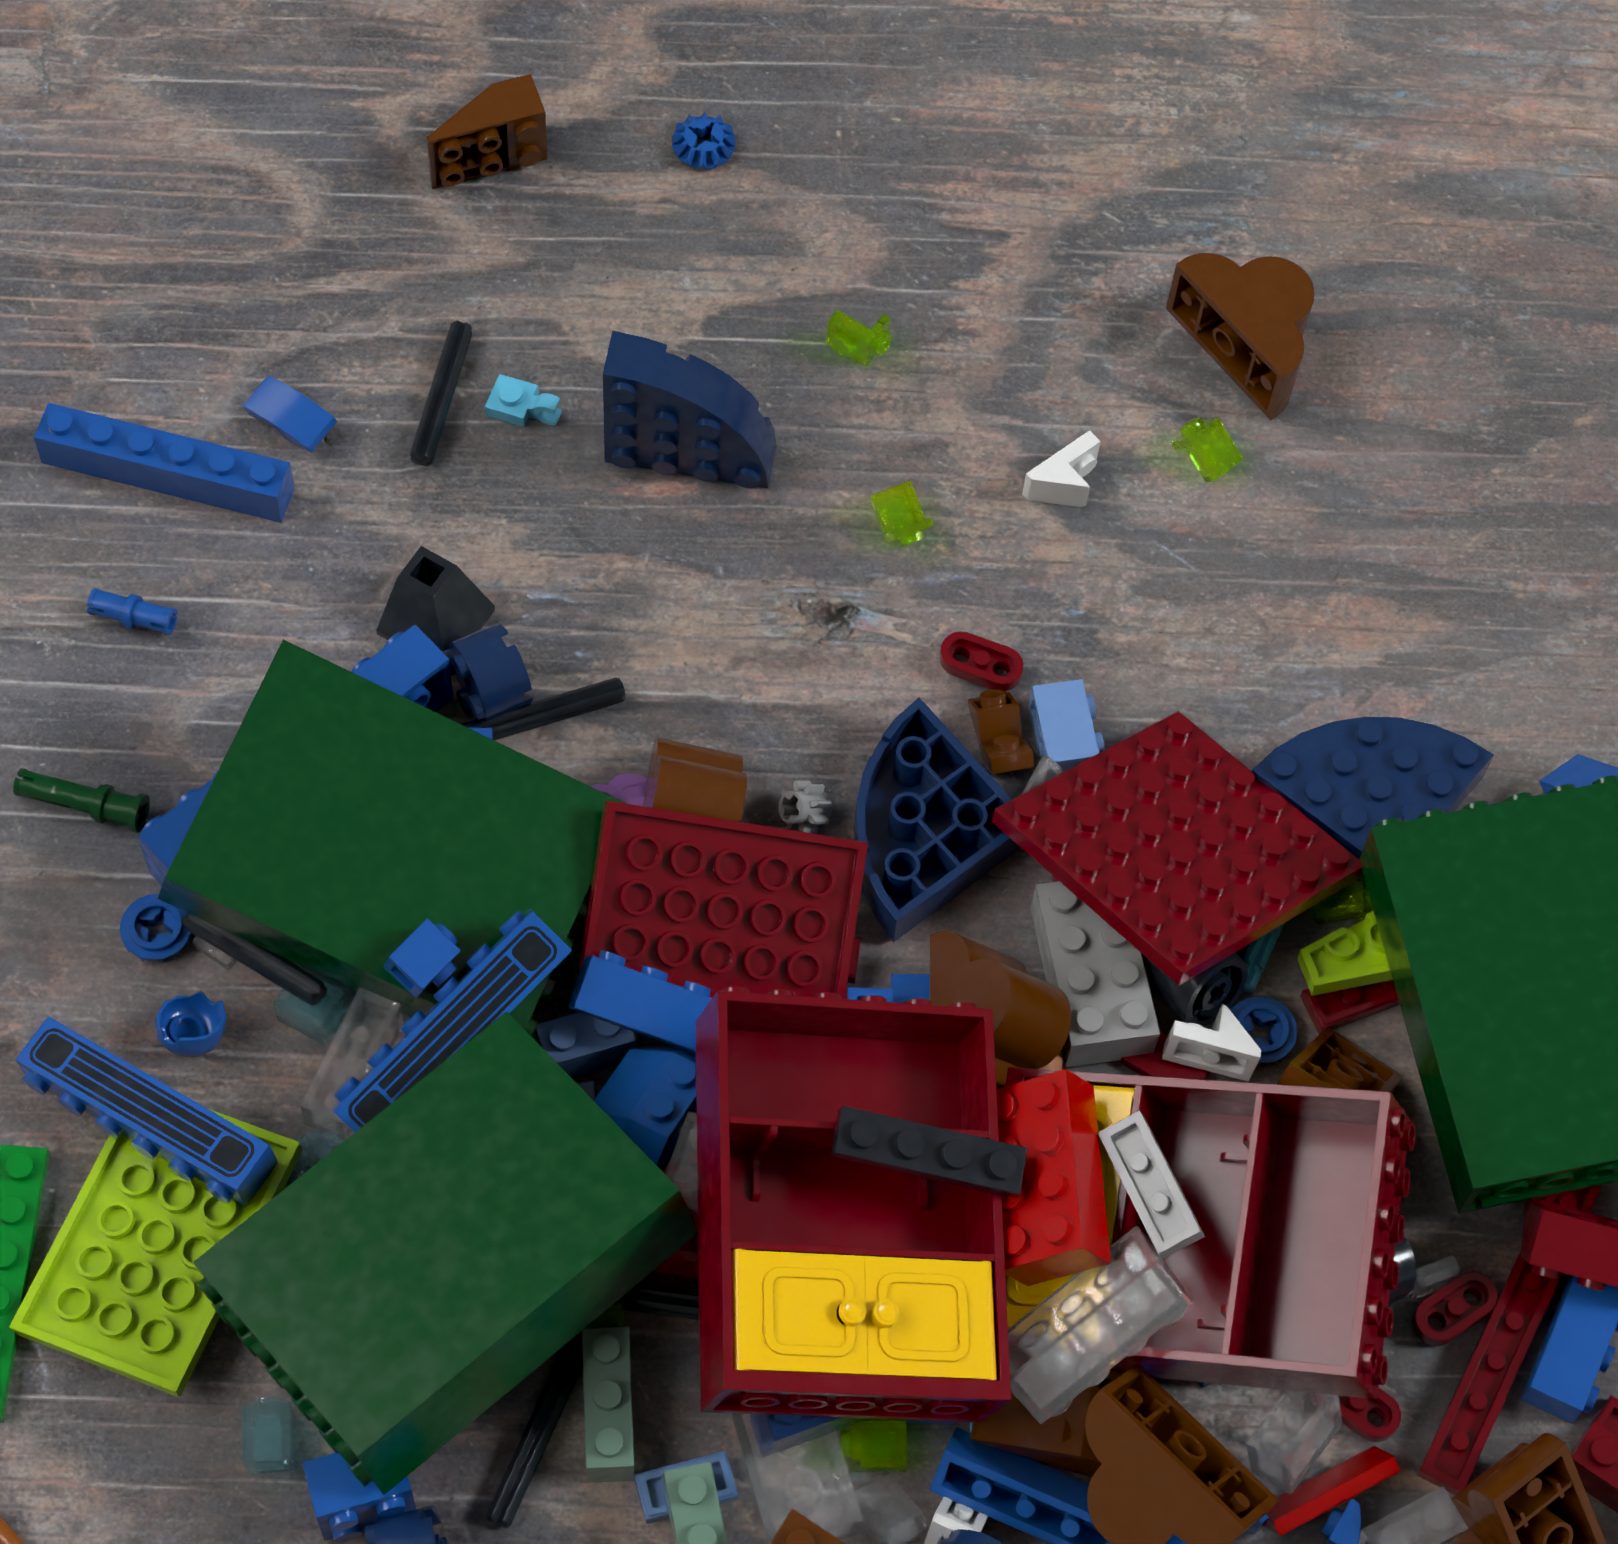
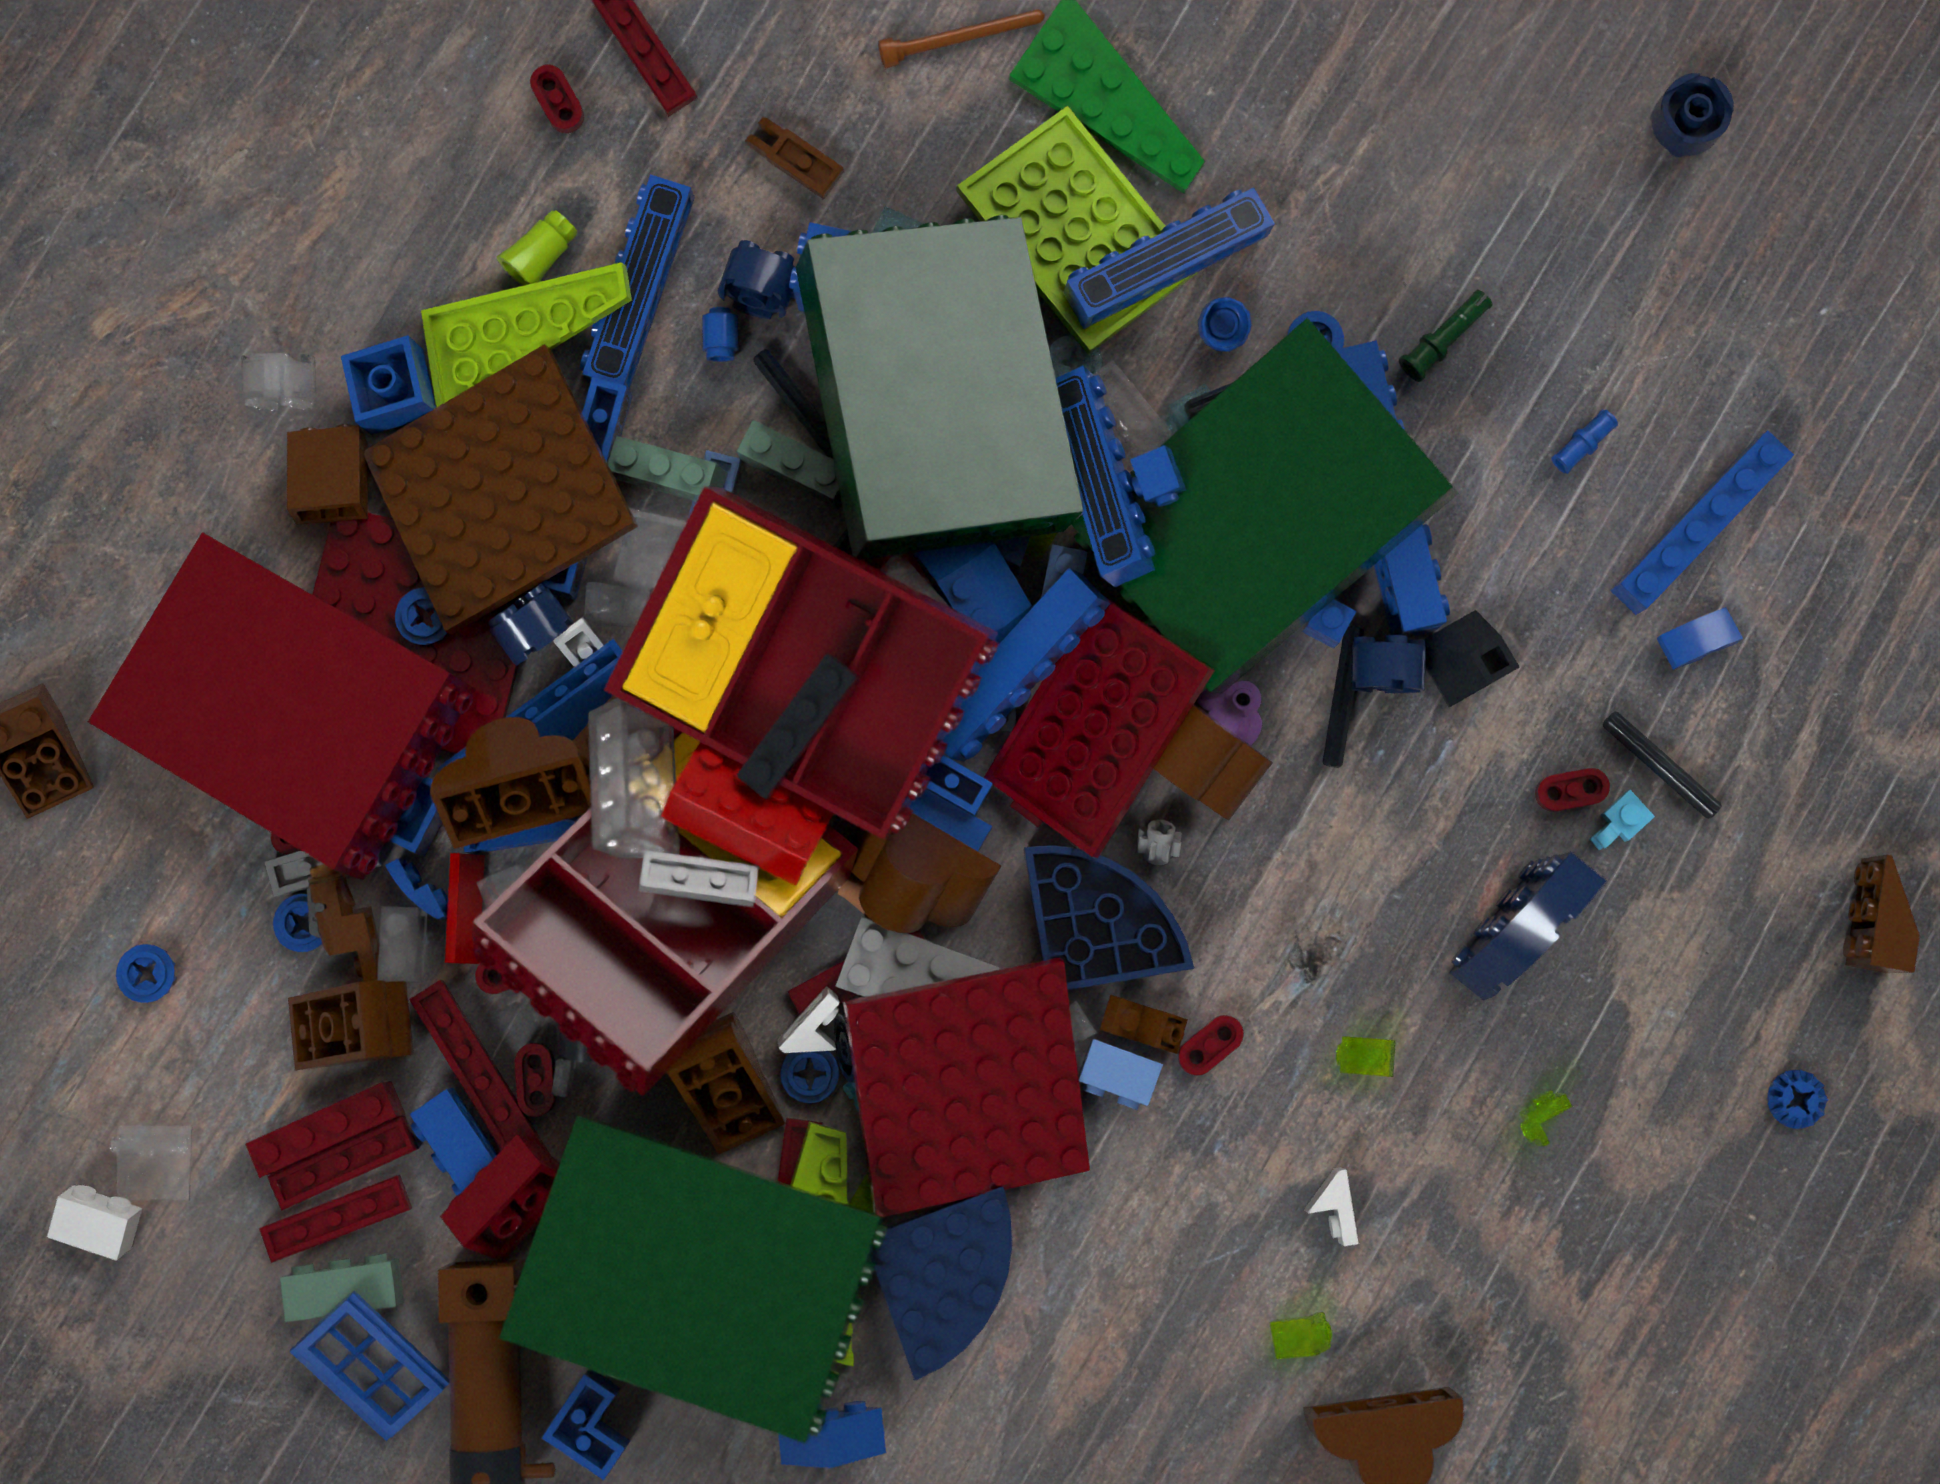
camera: 125 degrees right, 20 degrees up
(518, 460) = (1571, 789): none -> dark red plate

